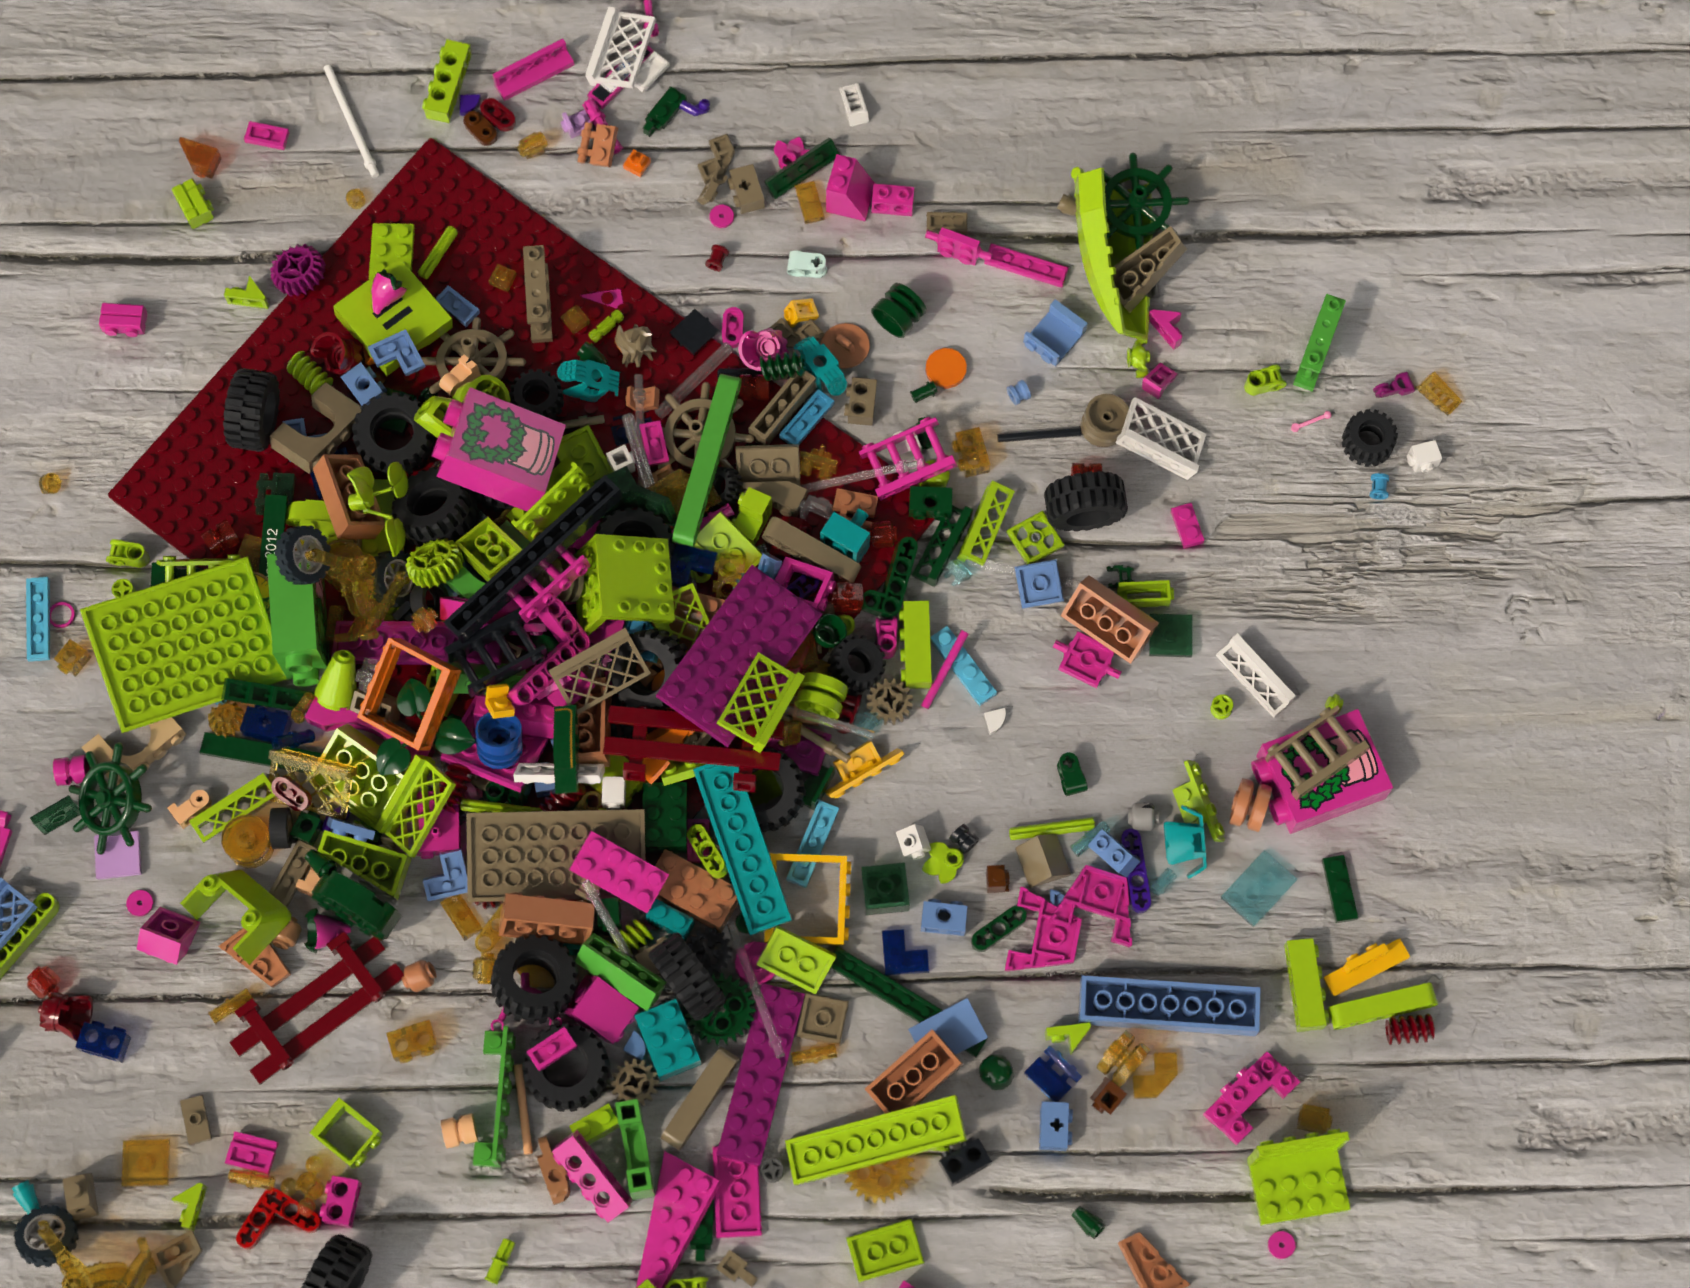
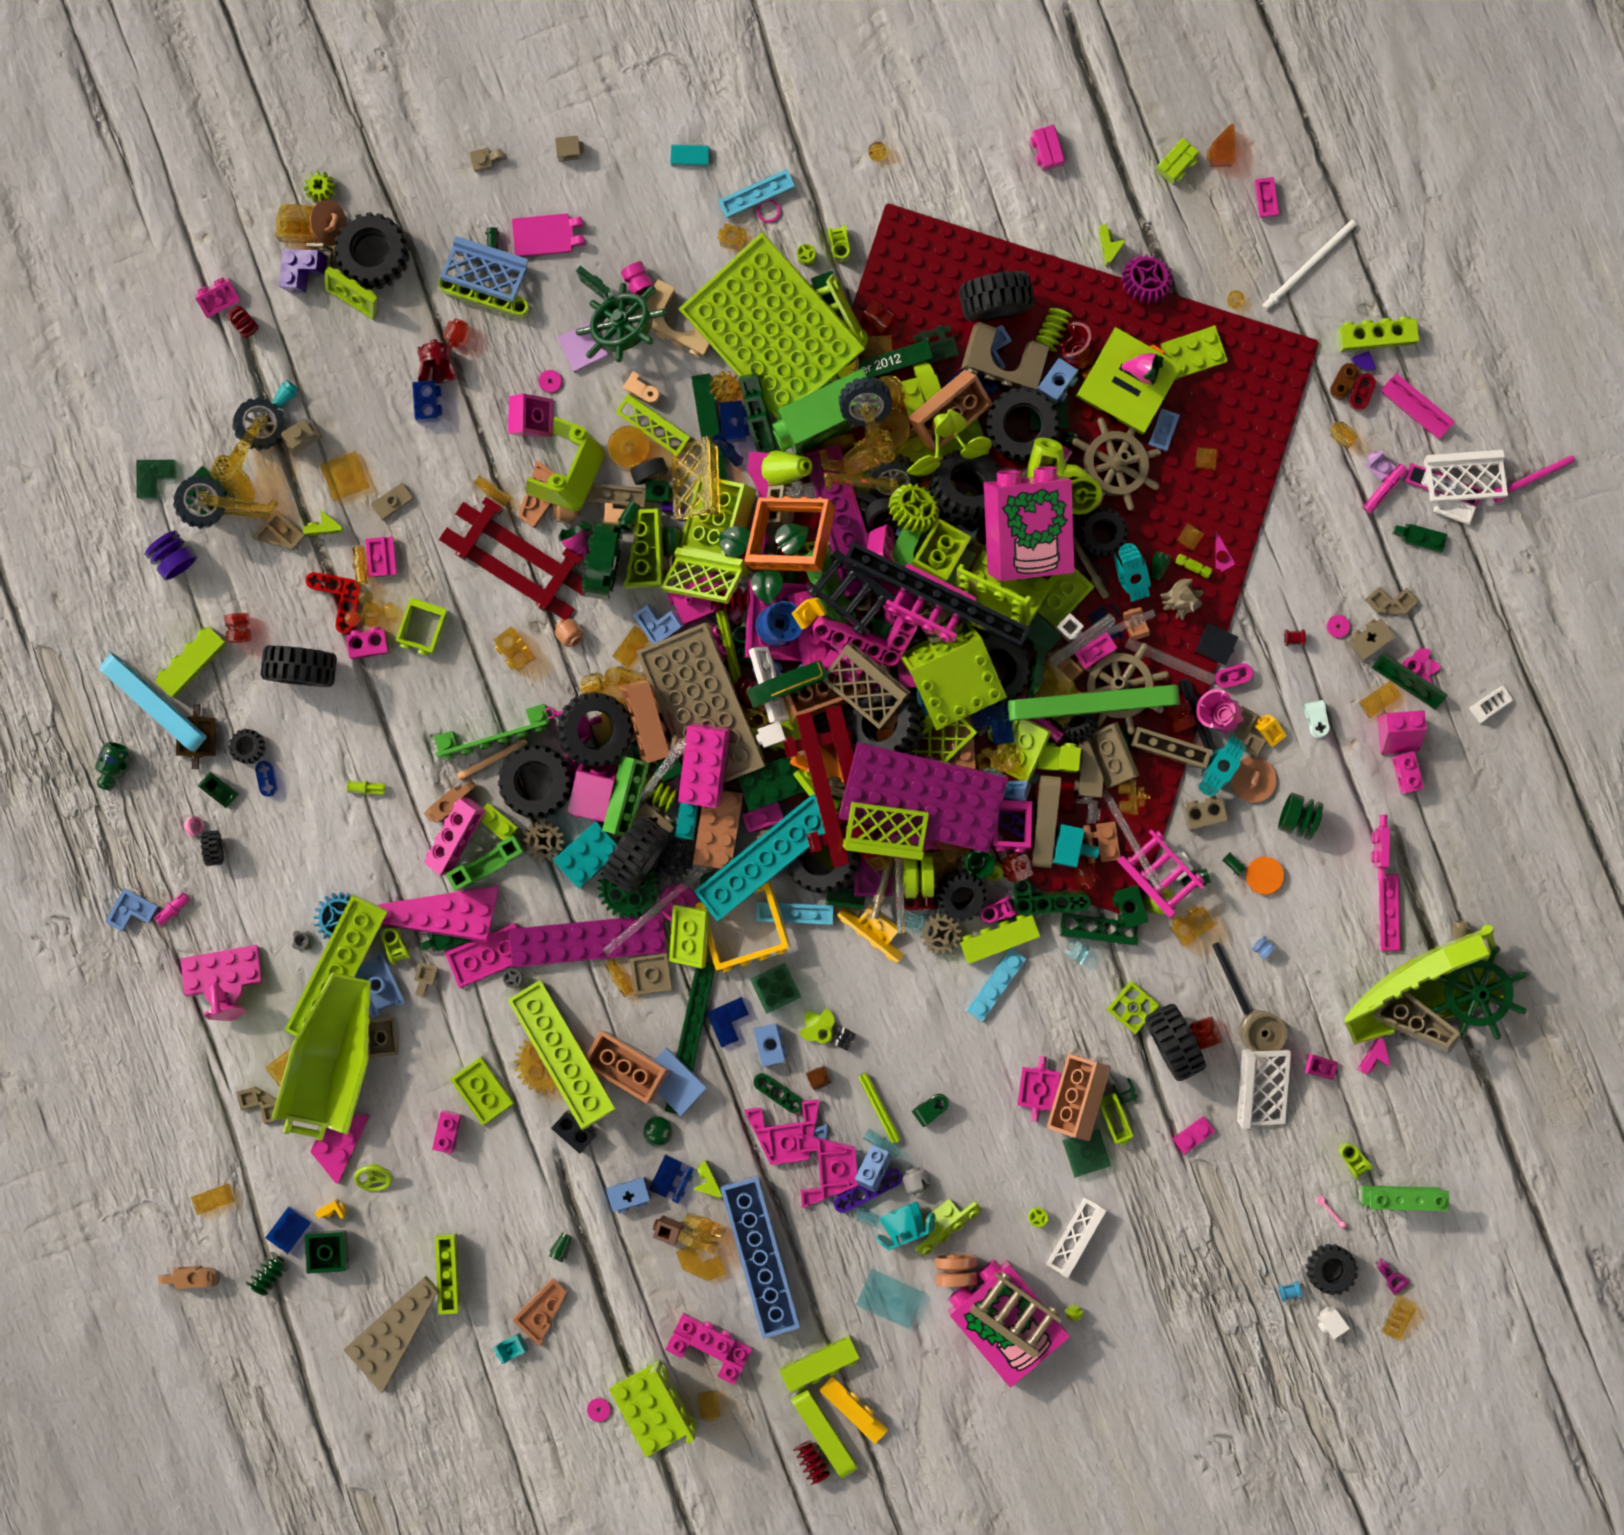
camera: 70 degrees right, 15 degrees up
(292, 794) = (680, 468): plate -> none
(298, 712) = (756, 445): clear yellow arm -> none
(342, 827) = (665, 522): medium blue plate -> none
(397, 347) = (1097, 397): medium blue plate -> none
(424, 620) = (860, 520): clear yellow gear -> none
(437, 252) = (1207, 392): lime axle -> none
(459, 1130) = (455, 715): light nougat wheel -> none
(462, 373) = (1092, 461): light nougat leg -> none
(537, 294) = (1197, 496): dark tan fence -> none
(551, 1049) = (540, 766): dark pink plate -> none
(603, 145) = (1364, 497): nougat plate -> none
(635, 1046) = (574, 830): medium blue tile -> none
(637, 163) = (1361, 532): orange tile -> none
(695, 110) = (1433, 566): dark purple arm -> none
(699, 848) = (754, 821): lime beam -> none
(700, 1098) = (550, 898): dark tan beam -> none
(709, 191) = (1357, 607): dark tan plate -> none
(783, 367) = (1202, 736): dark green piece -> none
(807, 418) = (1169, 772): dark azure plate -> none
(913, 841) = (824, 997): white brick -> none
(944, 669) = (985, 971): dark pink bar -> none
(950, 220) = (1404, 828): dark tan plate -> none
(978, 520) = (1130, 953): lime fence -> none
(994, 720) = (957, 1028): white tile -> none
(1039, 584) = (1091, 1024): medium blue tile -> none
(1042, 860) = (849, 1110): dark tan slope -> none
(1055, 333) = (1331, 960): medium blue panel -> none
(1138, 358) = (1334, 1041): lime piece -> none
(1339, 889) = (913, 1367): dark green plate -> none

